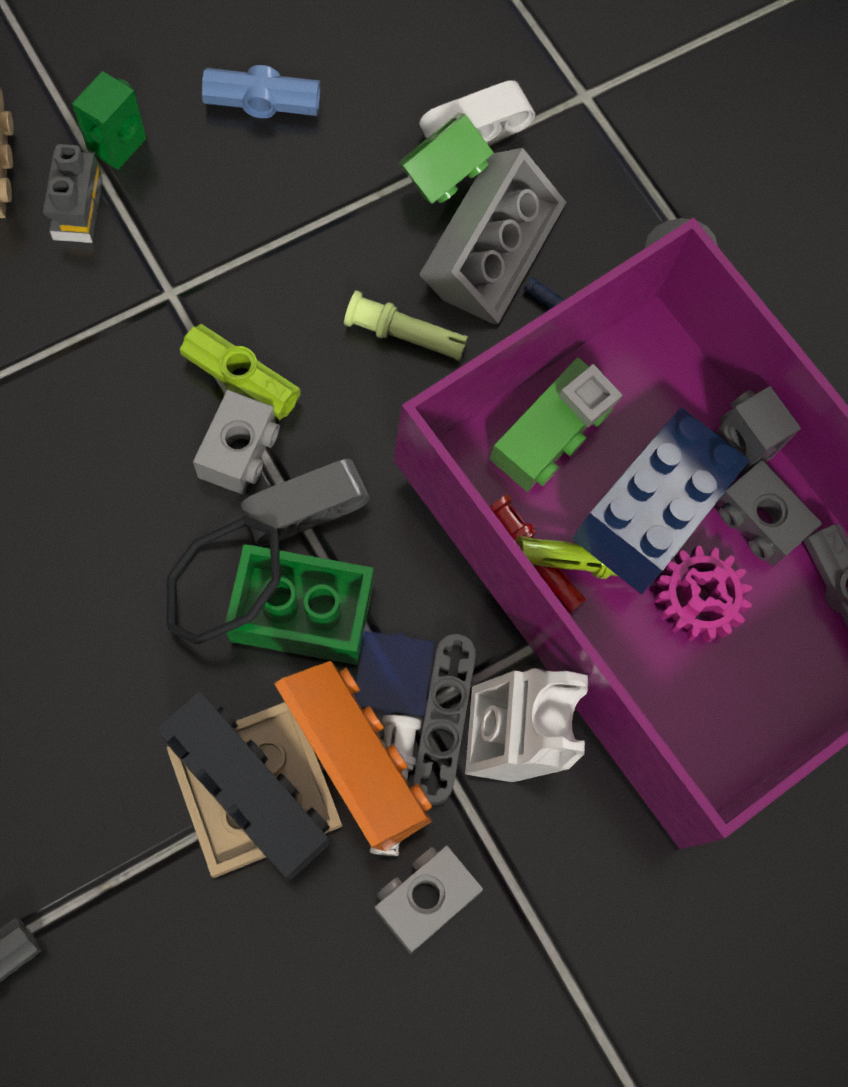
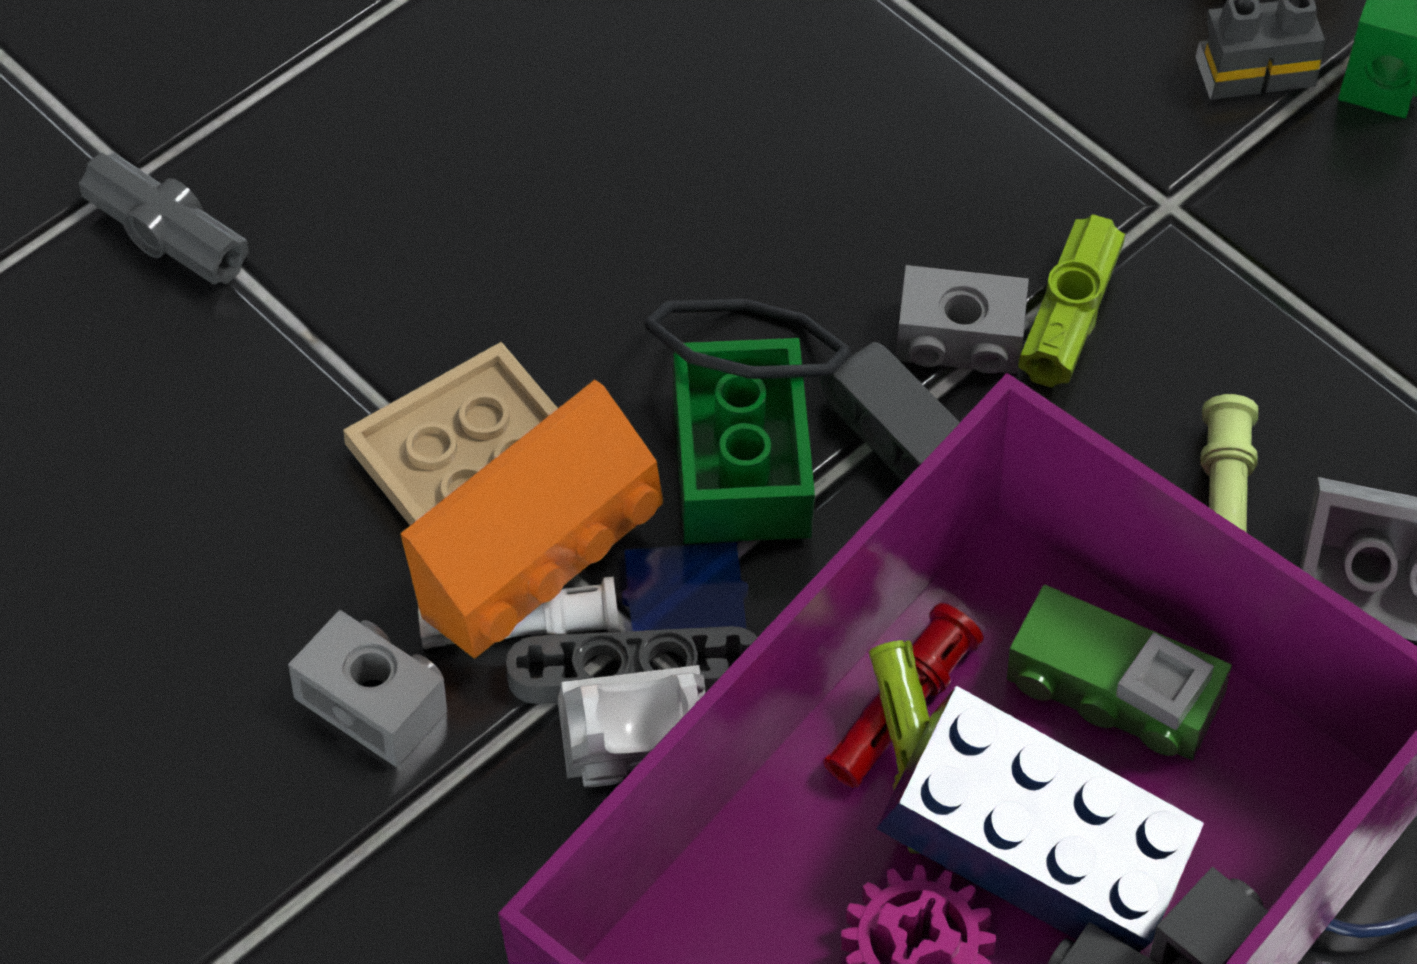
camera: 80 degrees right, 15 degrees down
(244, 786) = (468, 409): black wedge -> none

